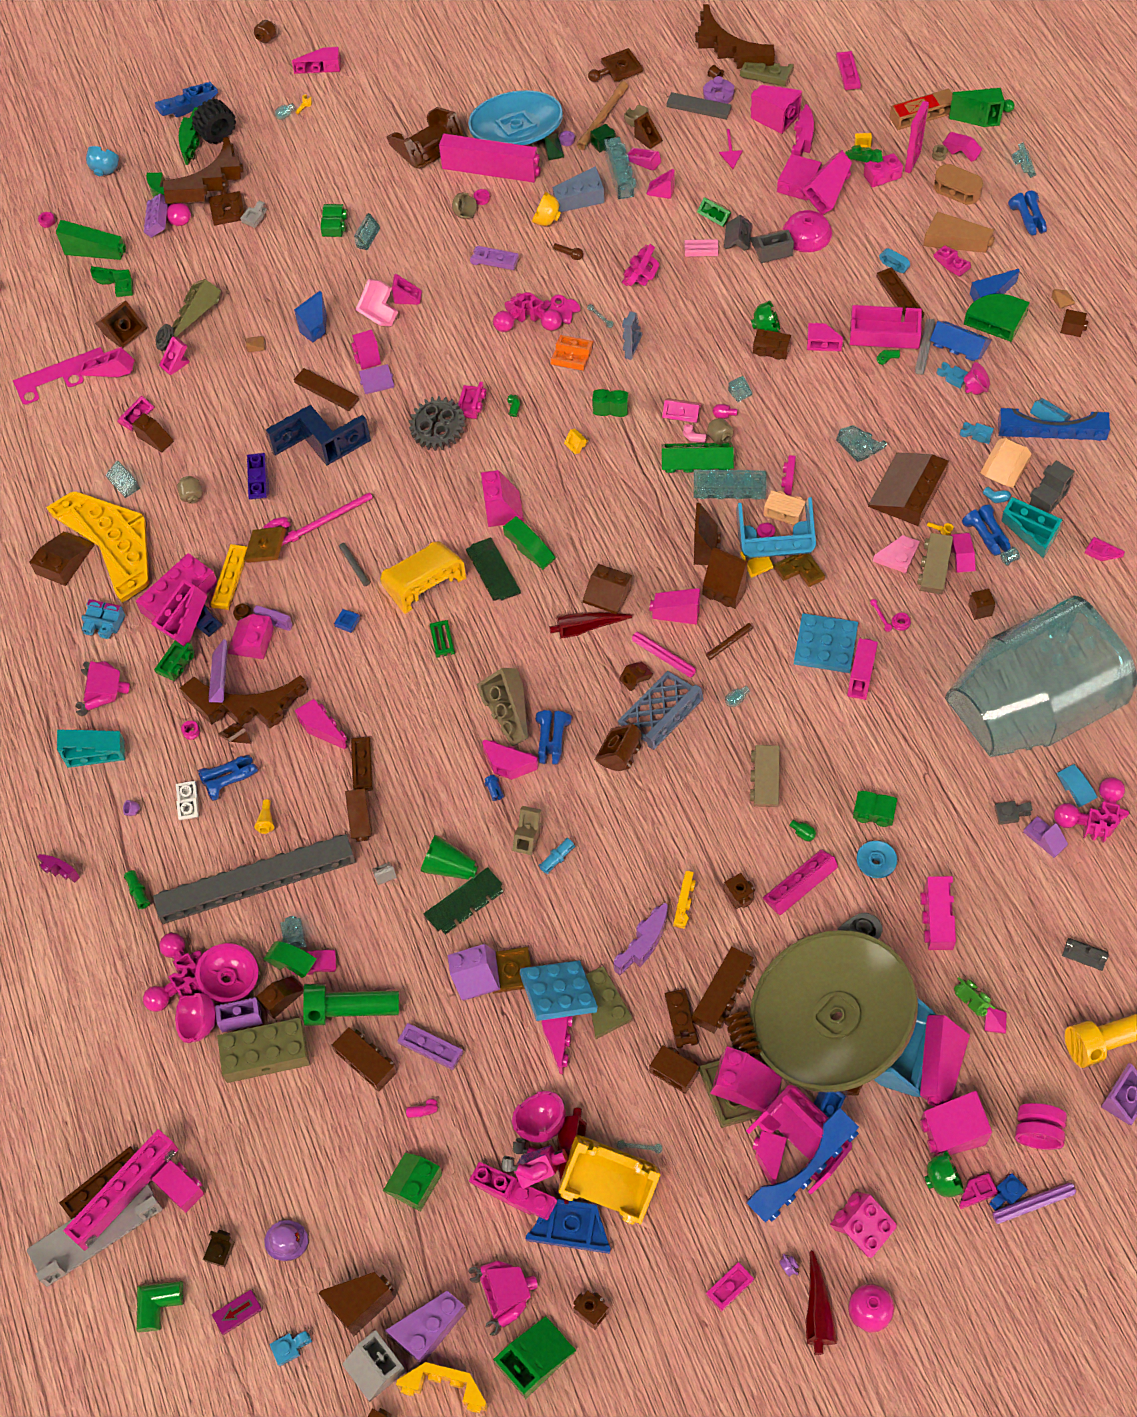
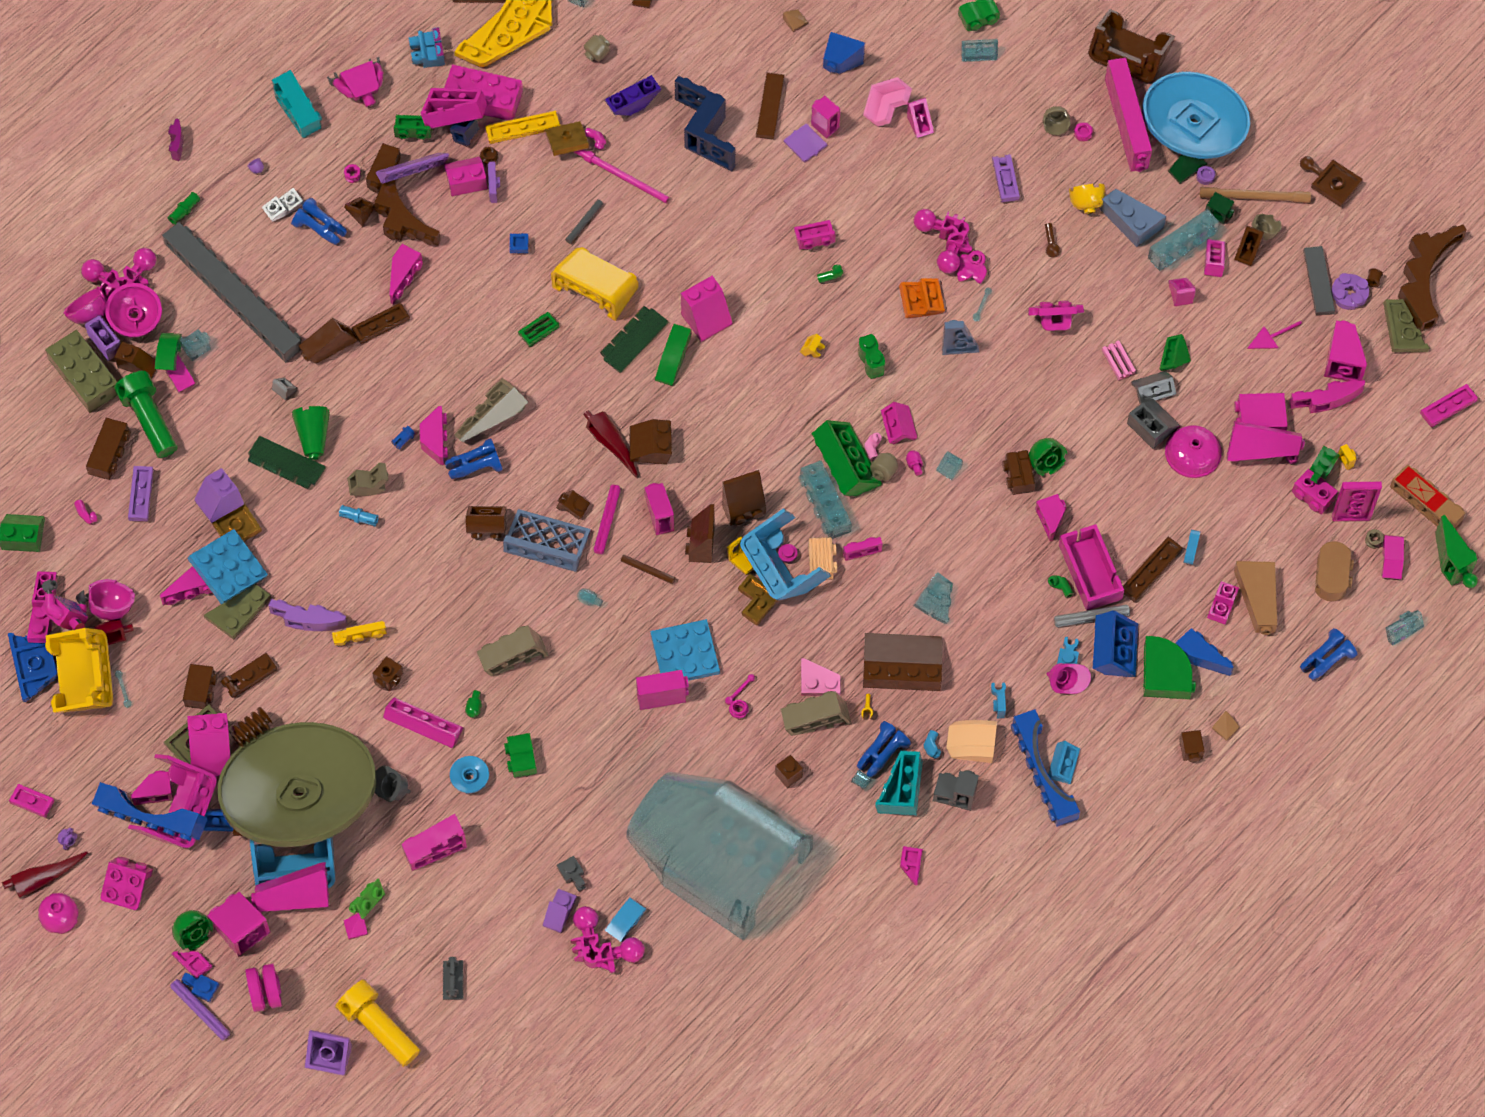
camera: 60 degrees right, 5 degrees up
(264, 822) = (289, 273): yellow cone -> none
(423, 419) = (772, 217): dark grey gear -> none
(723, 989) = (288, 696): reddish brown brick -> none
(964, 552) = (845, 733): dark pink slope -> none

